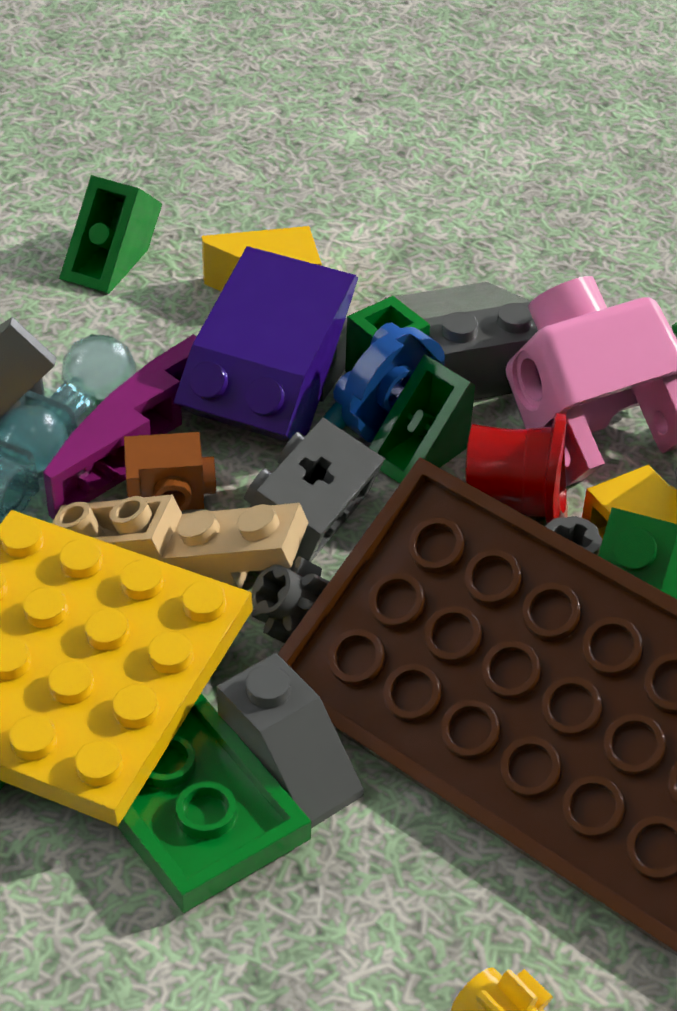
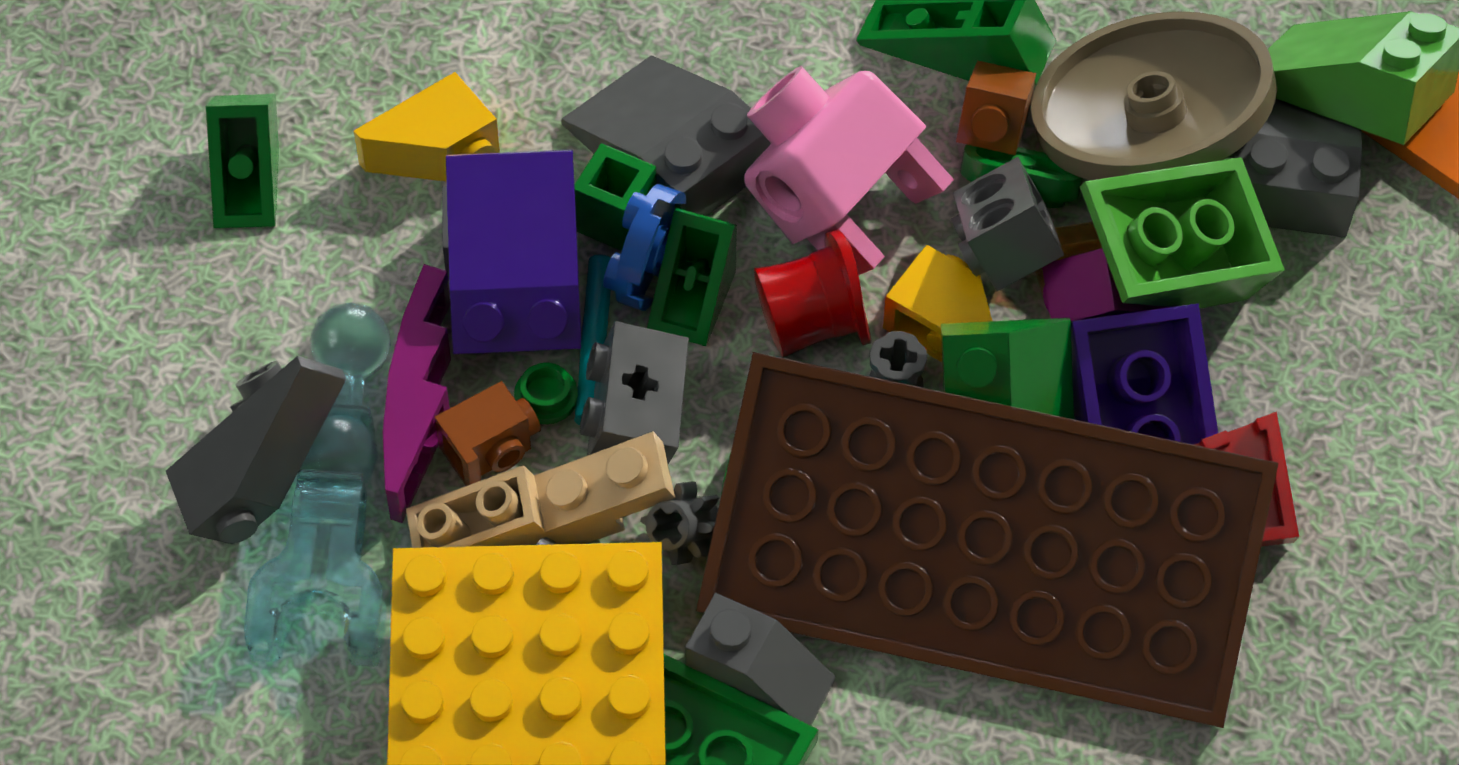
camera: 25 degrees left, 15 degrees up
(238, 465) = (549, 392): none -> green plate

